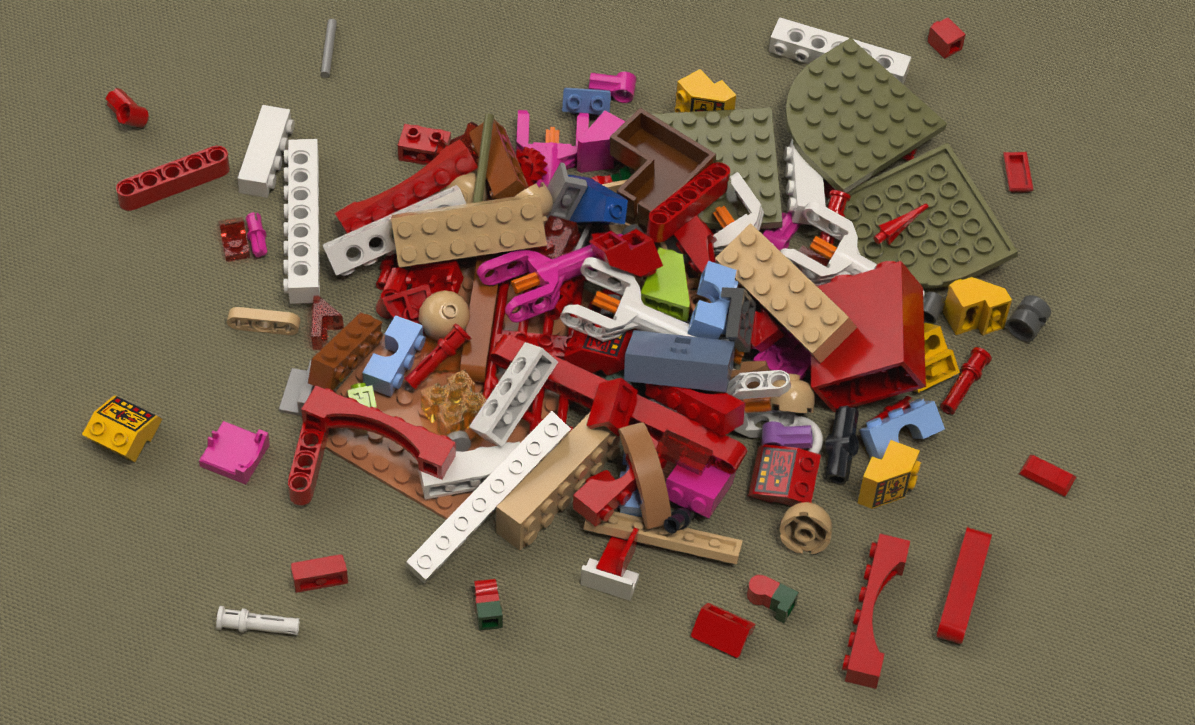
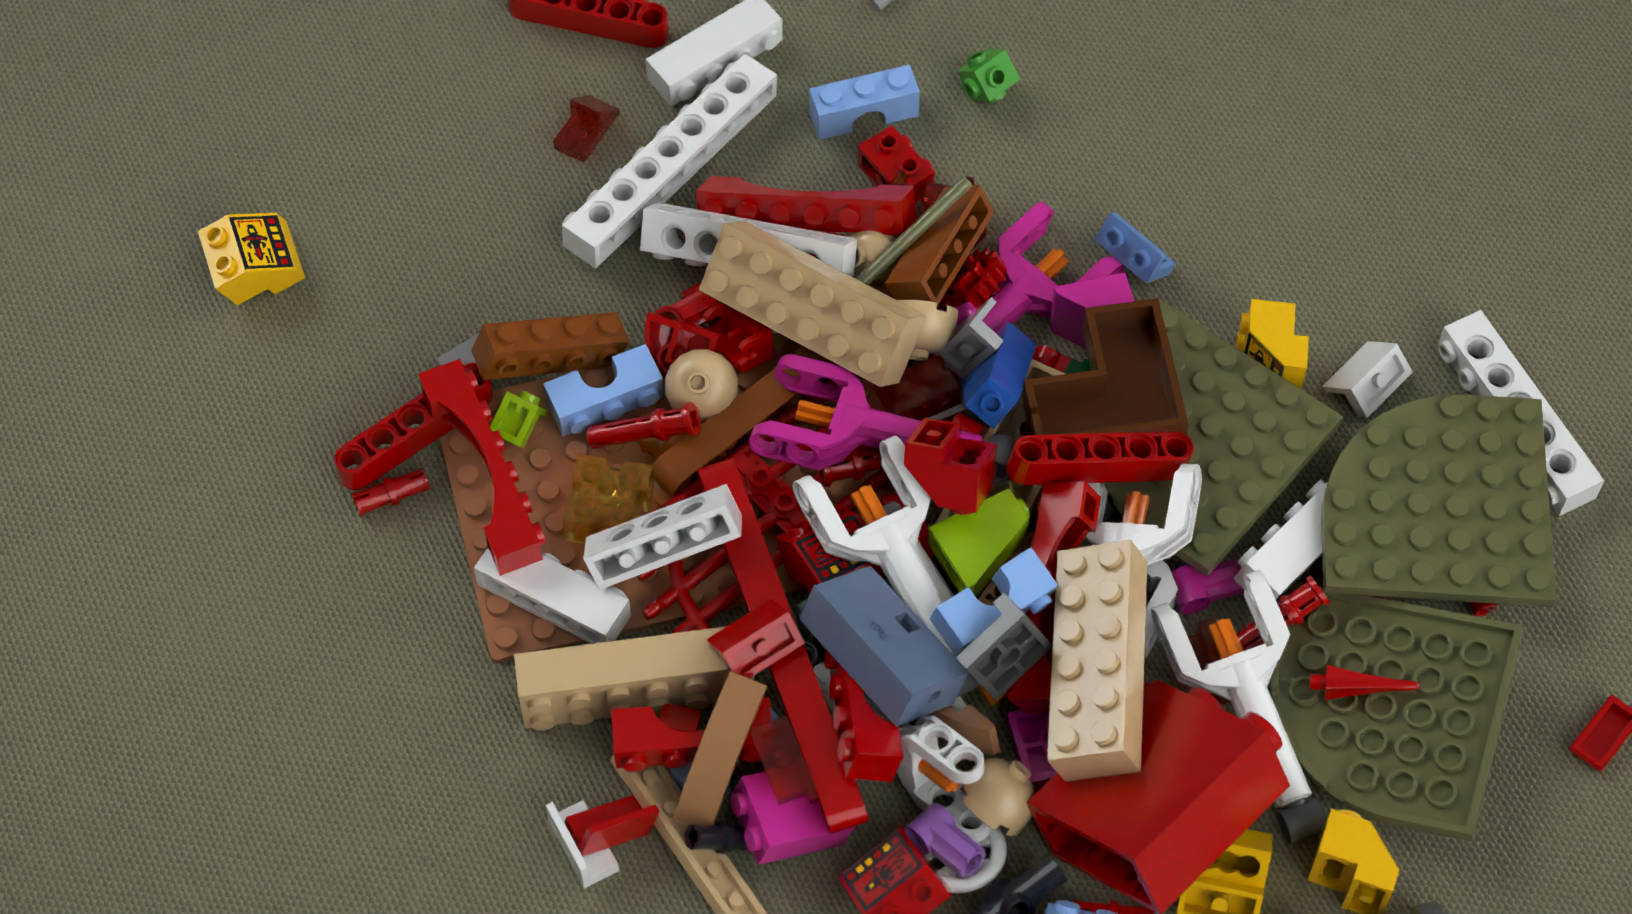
camera: 45 degrees right, 5 degrees up
(234, 452) = (341, 372): dark pink piece -> none
(244, 621) = (159, 570): white pin -> none
(256, 234) = (610, 141): dark pink axle -> none
(276, 321) = (517, 245): tan beam -> none
(319, 573) = (288, 578): red panel -> none
(323, 319) = (575, 289): clear red slope -> none
(327, 489) = (390, 491): none -> red pin
(381, 112) = (840, 103): none -> light blue arch
(425, 67) = (988, 75): none -> bright green brick
(462, 440) = (569, 545): light grey tile -> none
(486, 497) = (500, 638): white brick -> none
(488, 604) = (419, 761): leg -> none
(621, 86) = (1197, 258): dark pink piece -> none
(754, 85) = (1370, 376): none -> white panel

